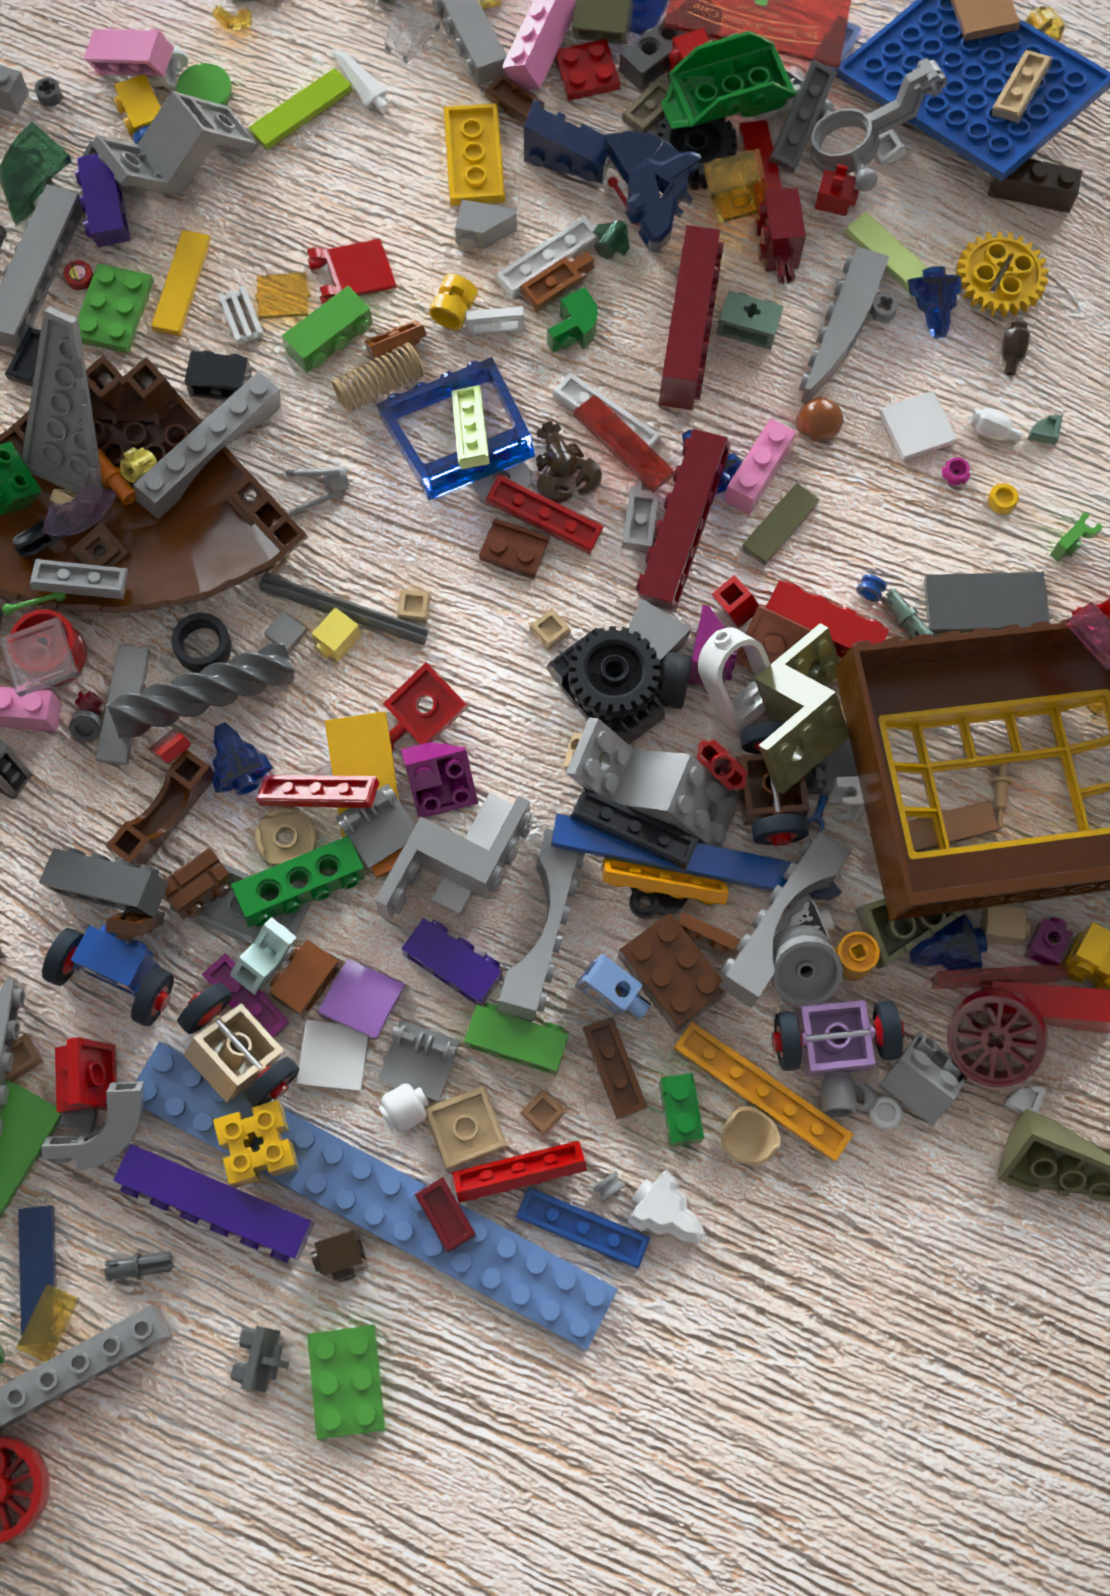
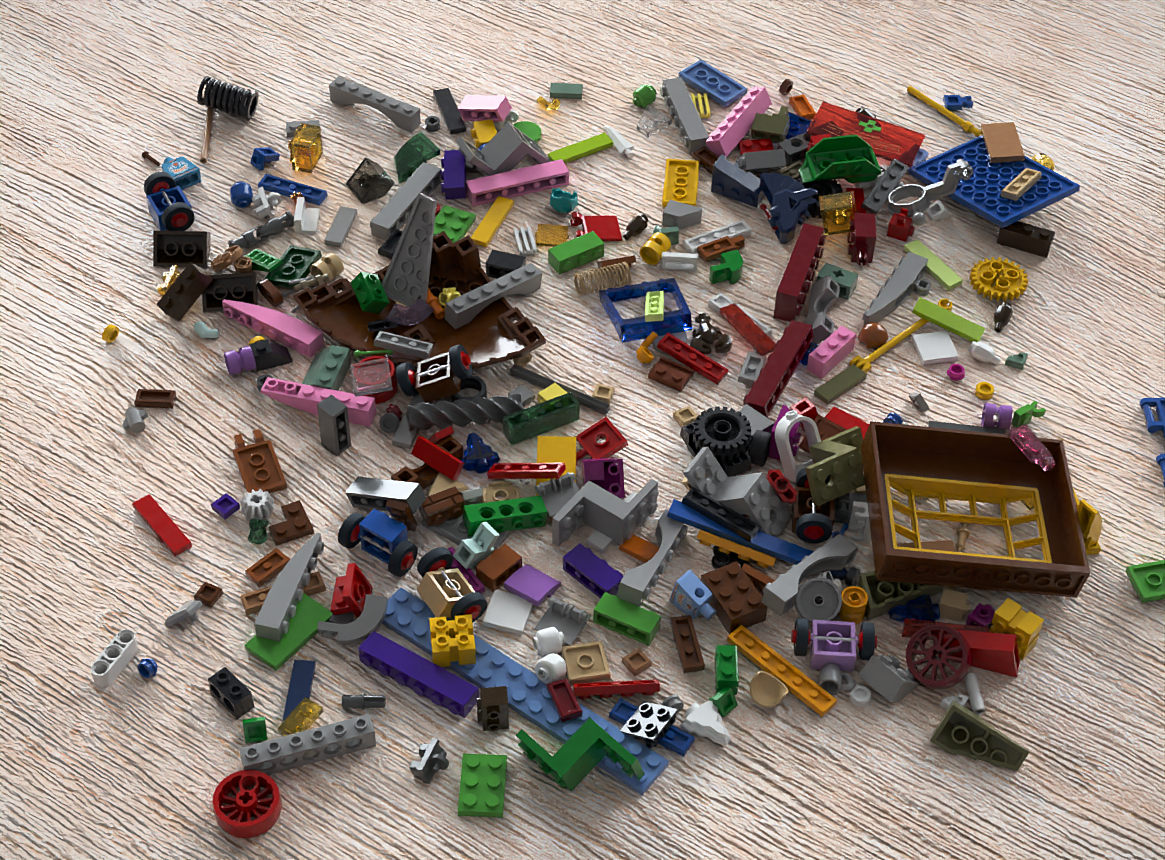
camera: 10 degrees right, 25 degrees down
(71, 59) = (449, 111): none -> black tile
(140, 633) = (435, 376): none -> brick
(173, 795) = (437, 458): none -> red tile
(193, 837) = (442, 483): none -> tan slope
(209, 197) = (517, 182): none -> bright pink brick
(238, 843) = (471, 494): none -> white plate
(290, 226) = (563, 201): none -> teal hair
(324, 680) = (541, 418): none -> clear green brick
(333, 479) = (565, 323): light grey plant -> none
(415, 257) = (636, 226): none -> dark brown plant
(415, 1159) = (550, 668): none -> white head
(465, 1349) = (580, 755): none -> green bracket
(467, 518) = (643, 353): none -> light orange plate
(472, 268) = (671, 232): none -> sand green plate
(520, 901) = (639, 548): none -> orange tile
(579, 1231) = (650, 722): none -> hinge
(598, 96) = (762, 161): none -> light grey brick
(612, 238) = (757, 232): clear green piece -> none
(685, 1166) = (724, 701): none -> green tile
(733, 353) = (822, 296): none -> light grey arch
(812, 474) = (864, 364): none -> yellow hinge
(847, 898) = (852, 576): none -> black tile
(906, 538) = (917, 397): none -> light grey tile
(933, 372) = (948, 320): none -> lime tile
(936, 297) = (955, 282): clear blue rock -> none
(1032, 552) = (1003, 419): none -> medium lavender wheel
(1055, 1085) = (974, 694): none -> white piece

